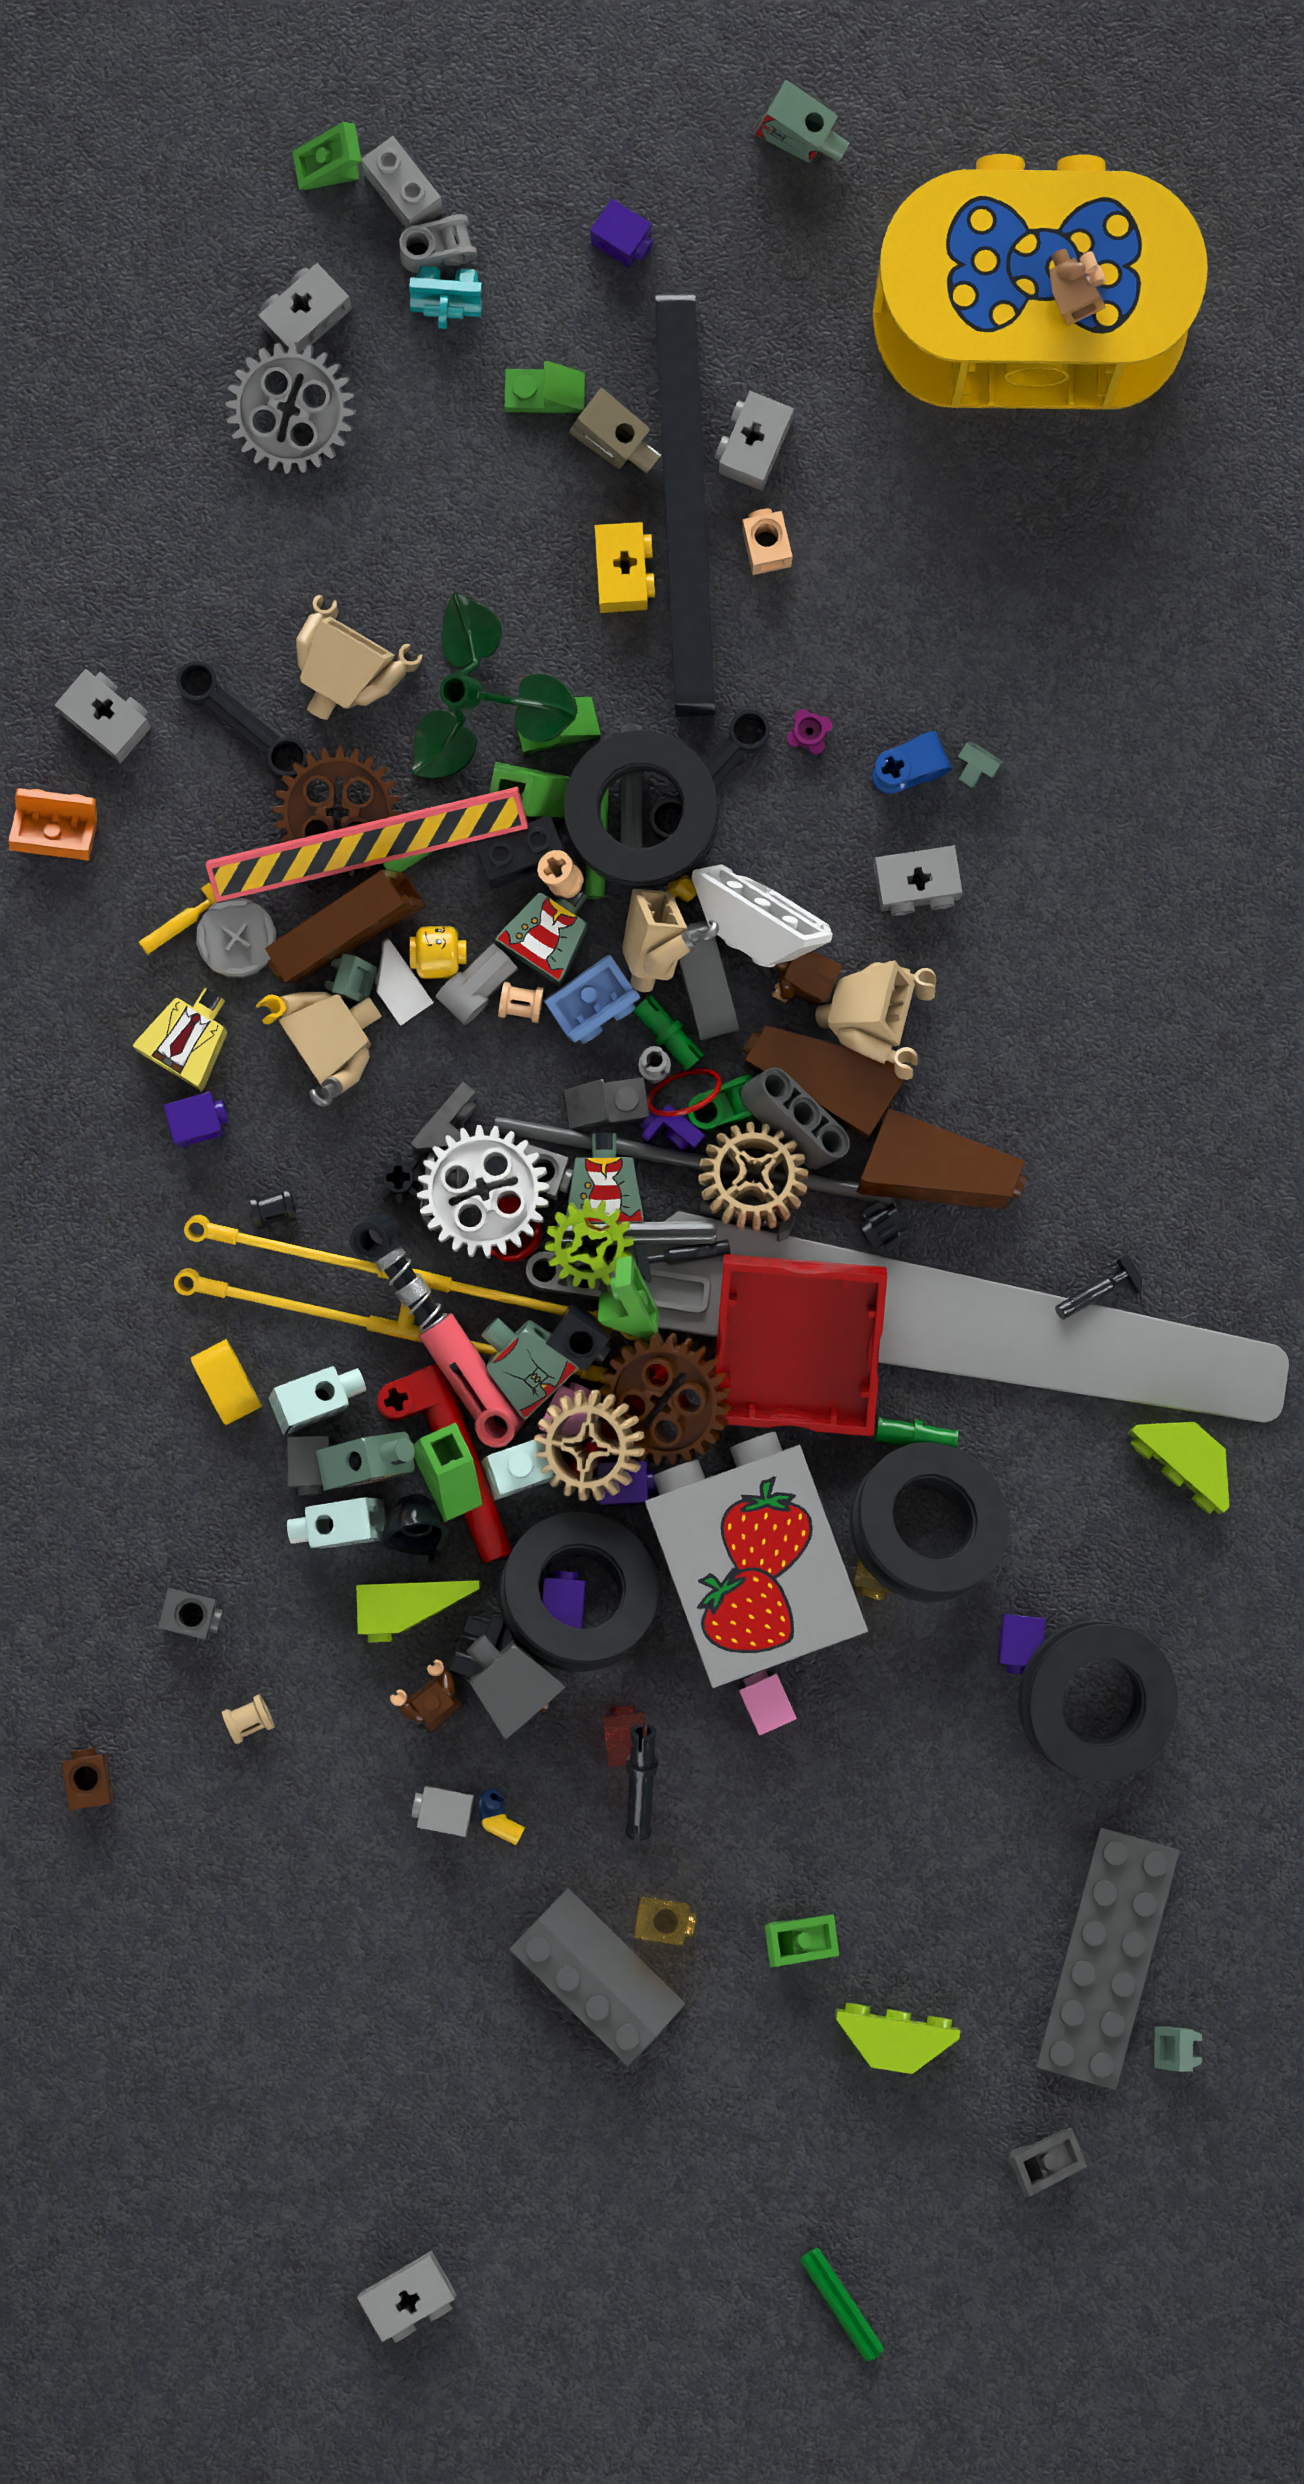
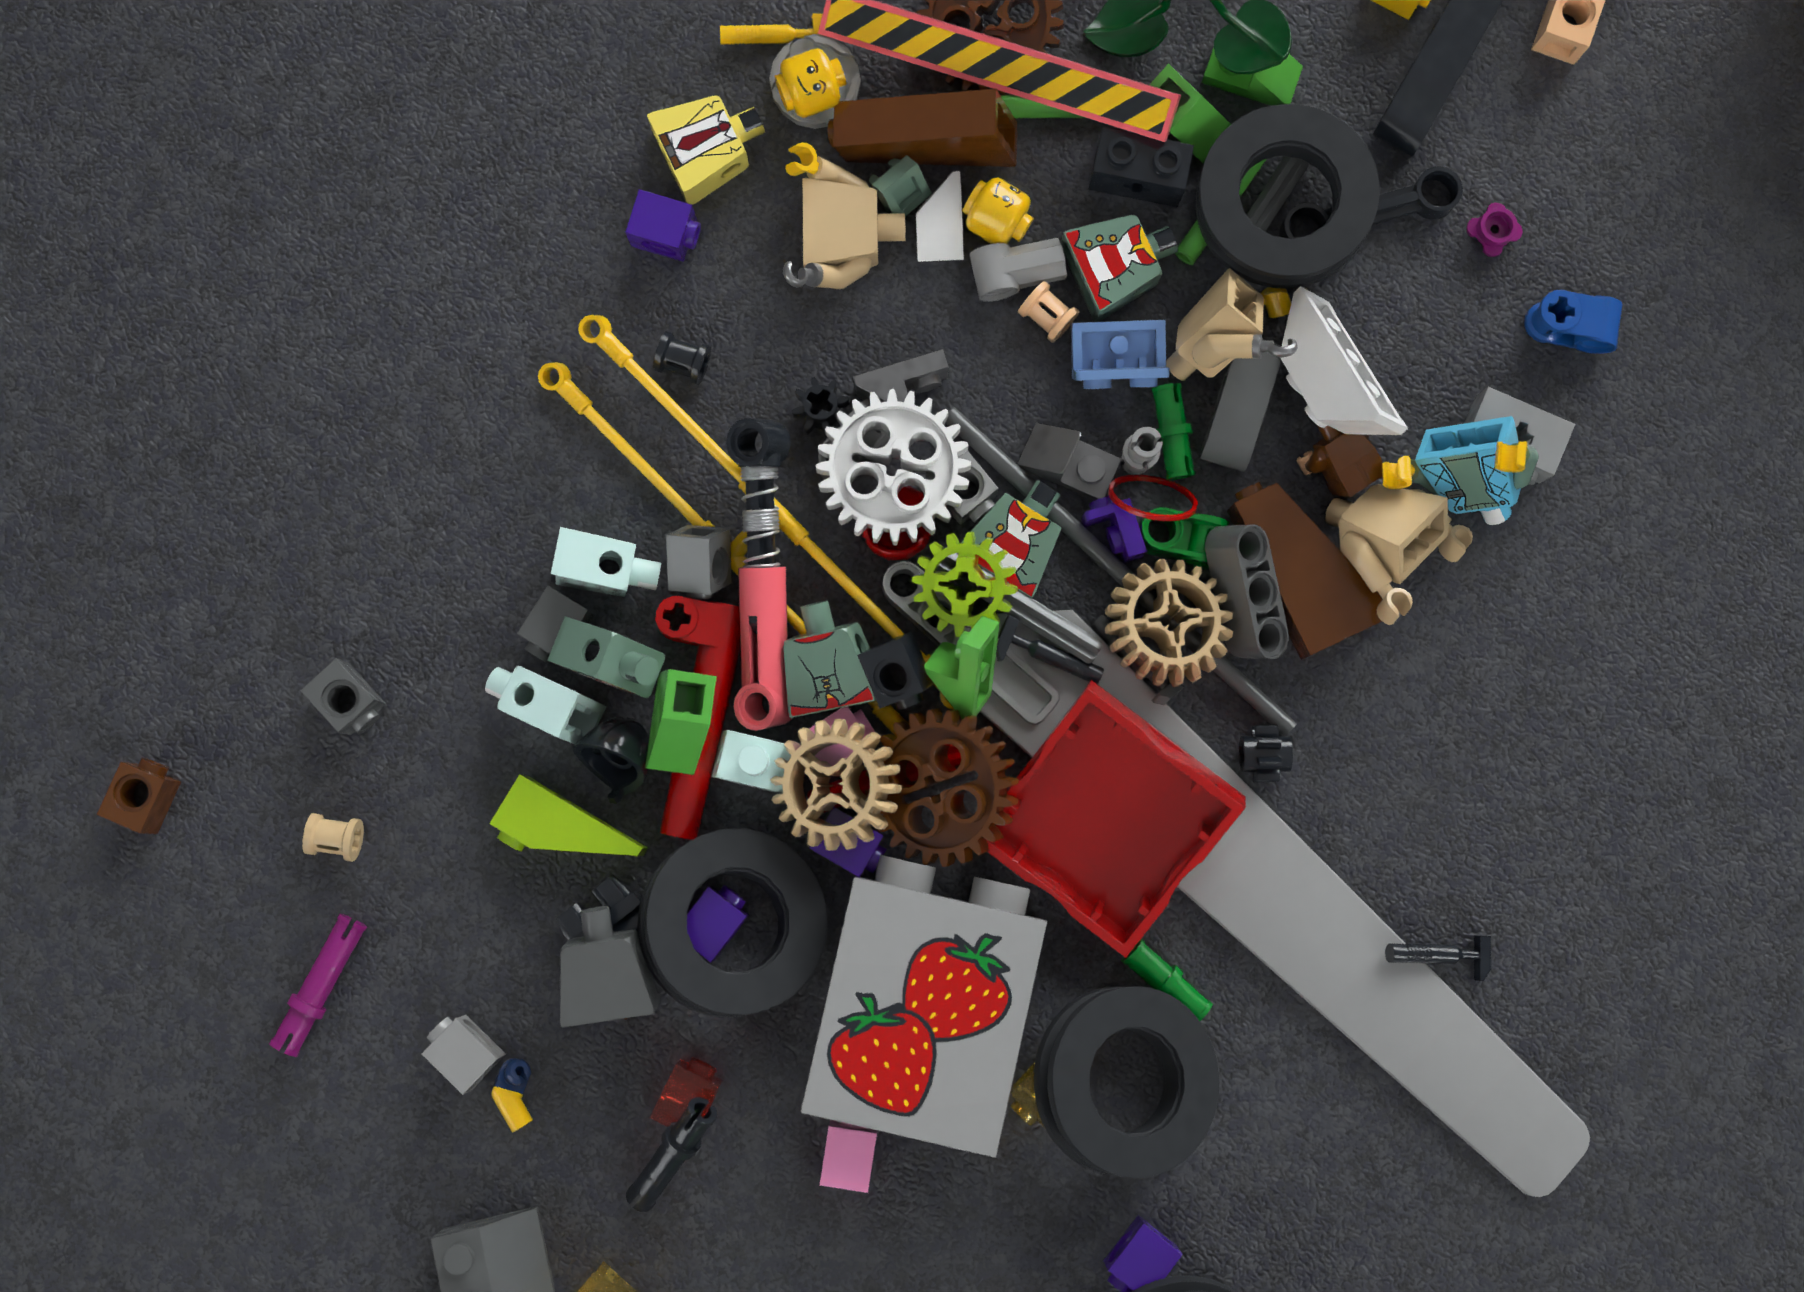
camera: 30 degrees right, 0 degrees up
(225, 1382) = (526, 495): yellow beam -> none
(238, 946) = (810, 82): none -> yellow head
(307, 1831) = (317, 986): none -> magenta pin
(384, 1348) = (698, 560): none -> dark grey brick
(433, 1703) = (518, 938): reddish brown piece -> none
(559, 862) = (1167, 202): light nougat bush -> none
(896, 926) = (1470, 464): none -> torso
(938, 1166) = (1359, 729): reddish brown slope -> none
(978, 762) = (1646, 361): sand green tile -> none
(1188, 1458) = (1429, 1183): lime slope -> none

